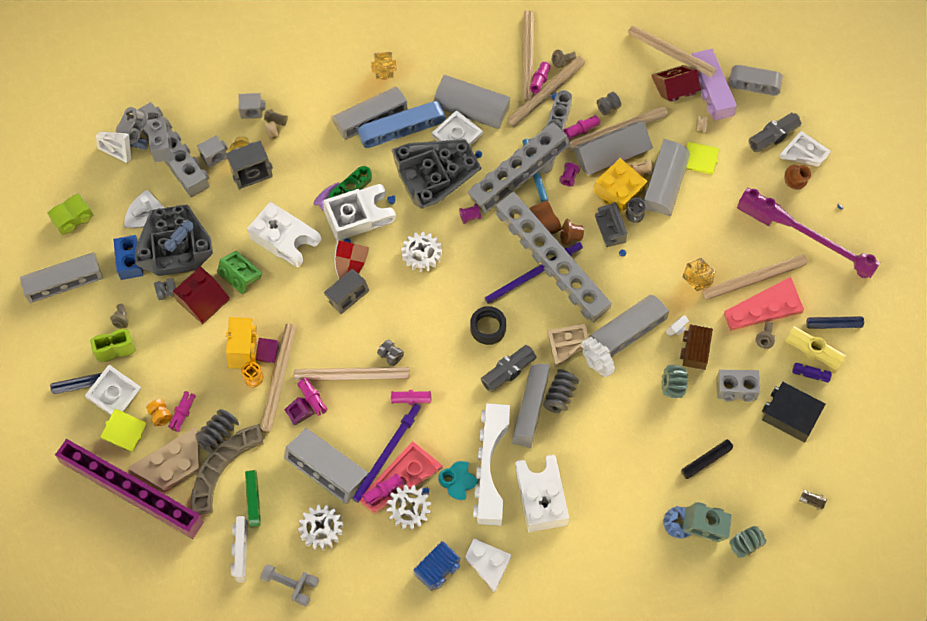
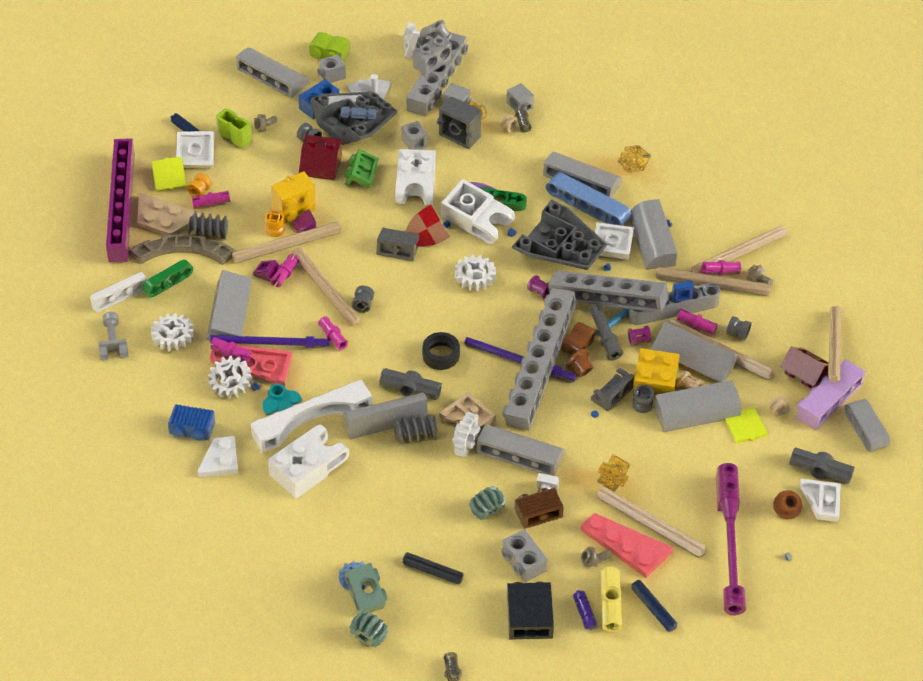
camera: 55 degrees right, 15 degrees down
(98, 220) = (332, 69): none -> light grey brick
(237, 213) = (414, 136): none -> light grey brick
(560, 115) = (682, 291): none -> blue tile
(560, 198) = (608, 339): none -> dark grey pin

